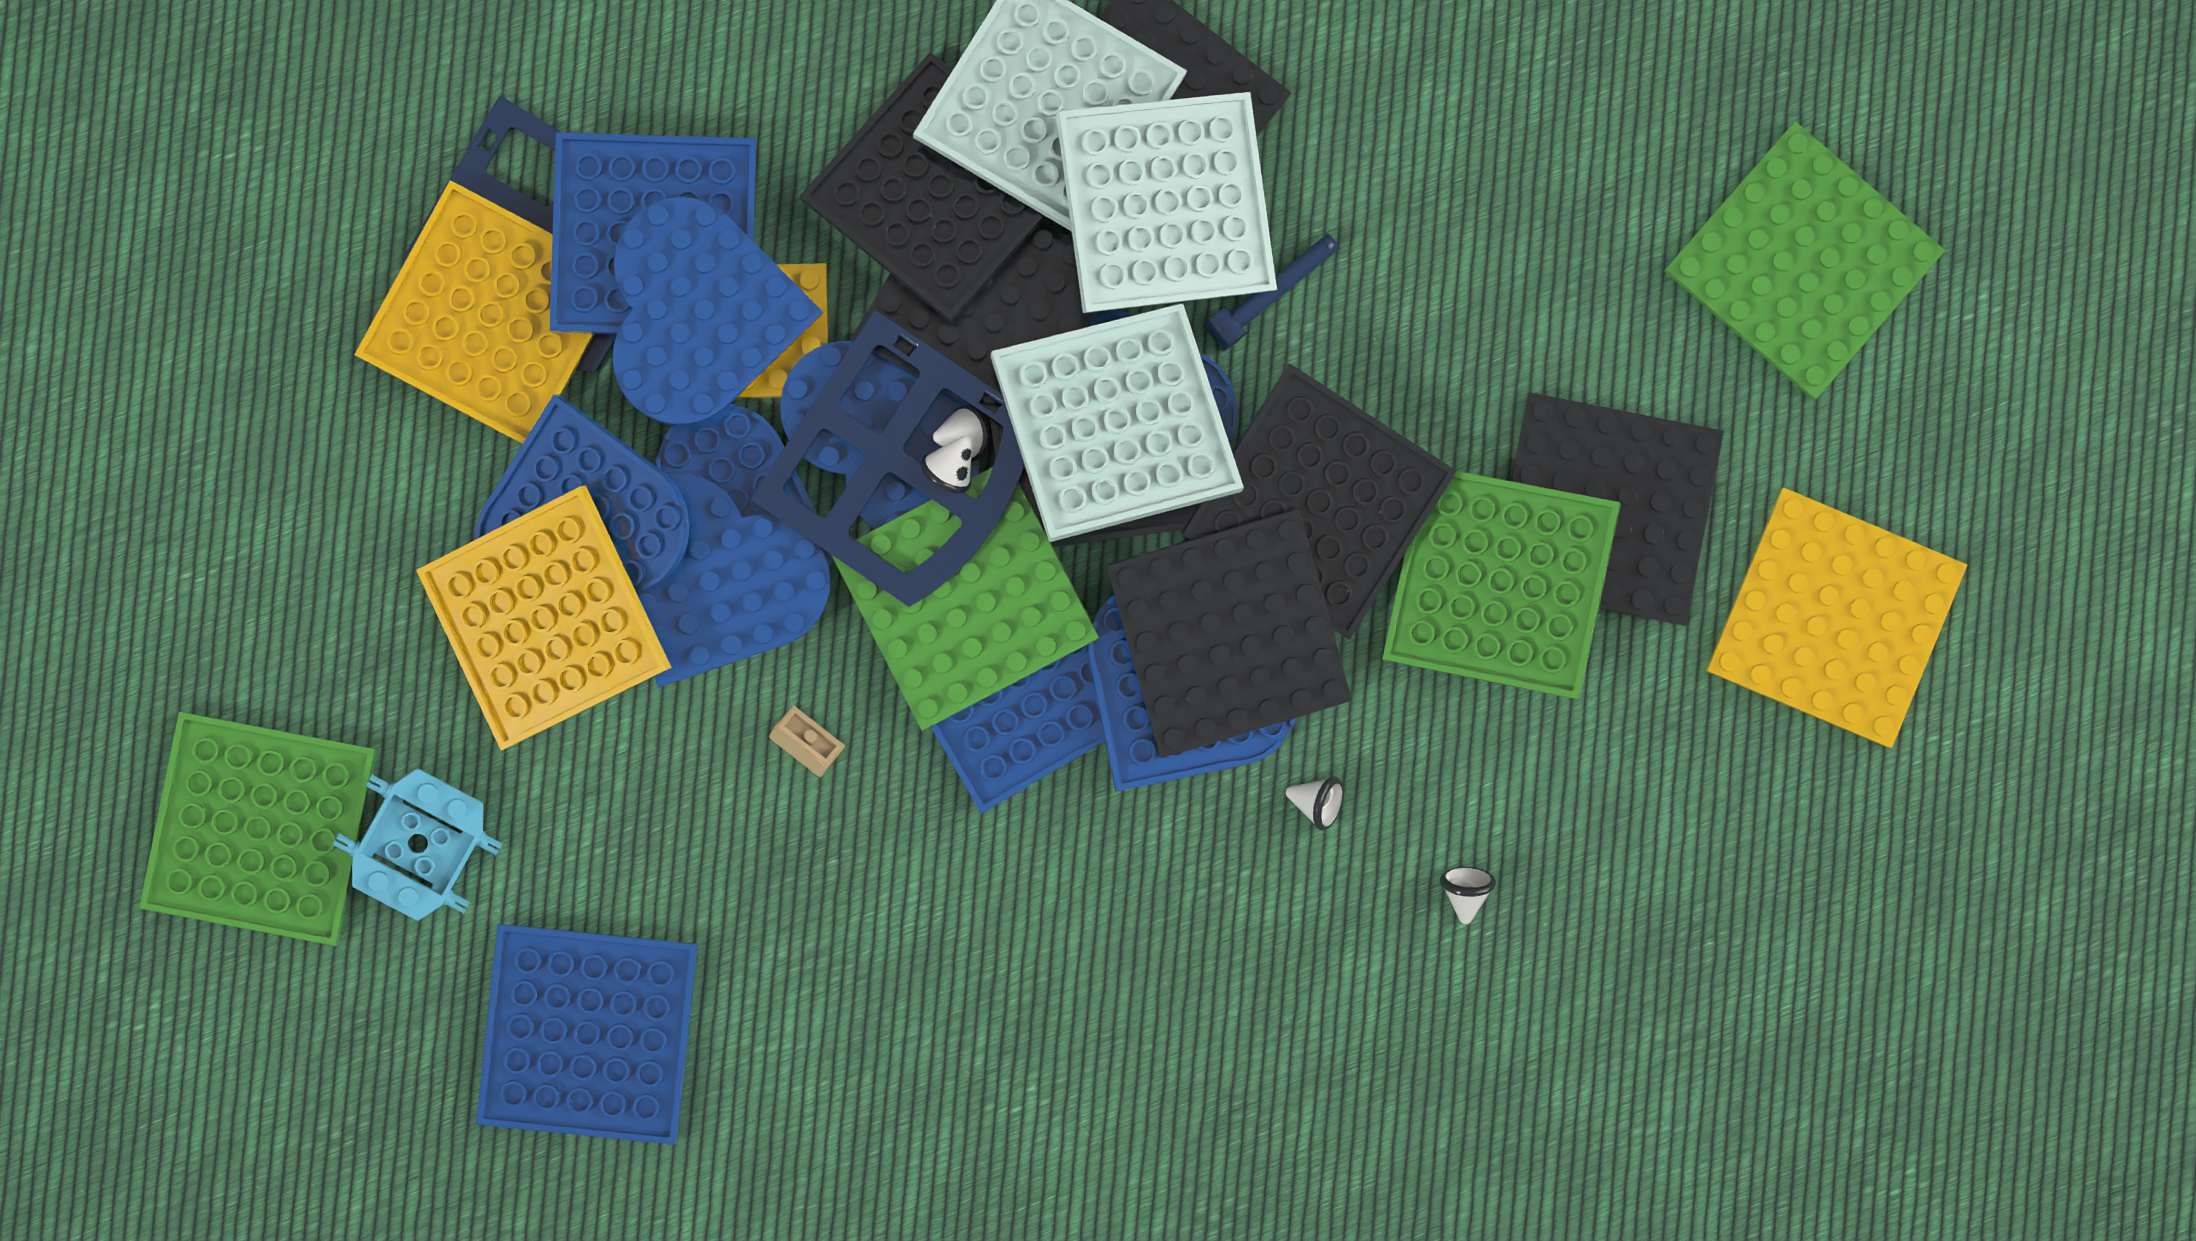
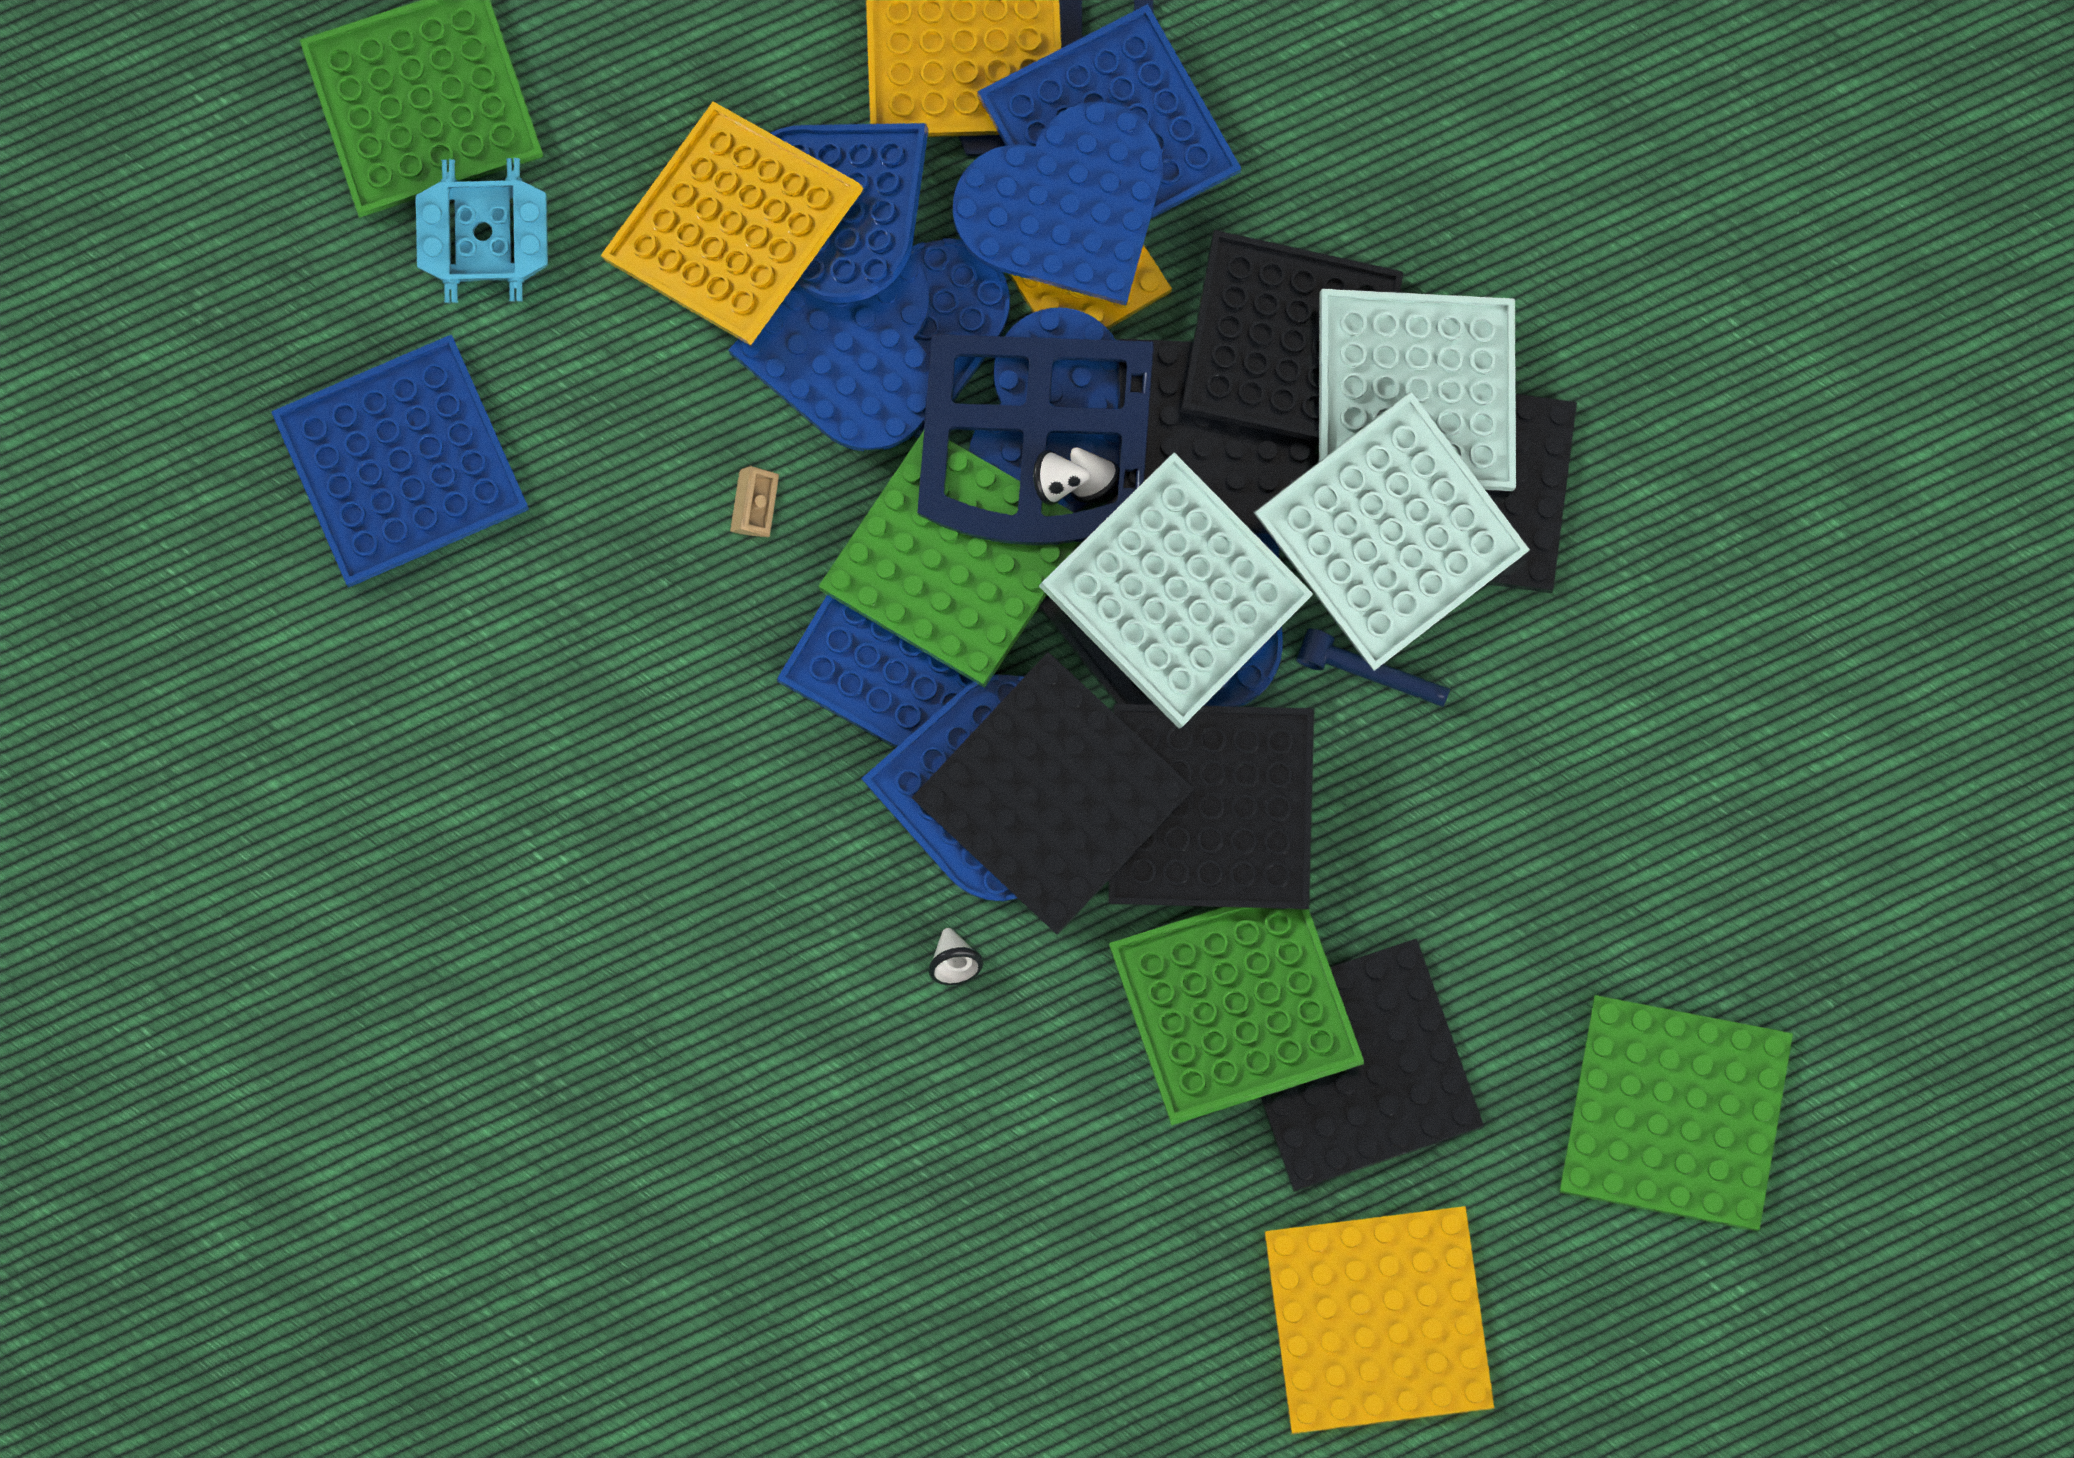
camera: 60 degrees right, 10 degrees down
(1467, 890) = (949, 1130): white hat -> none

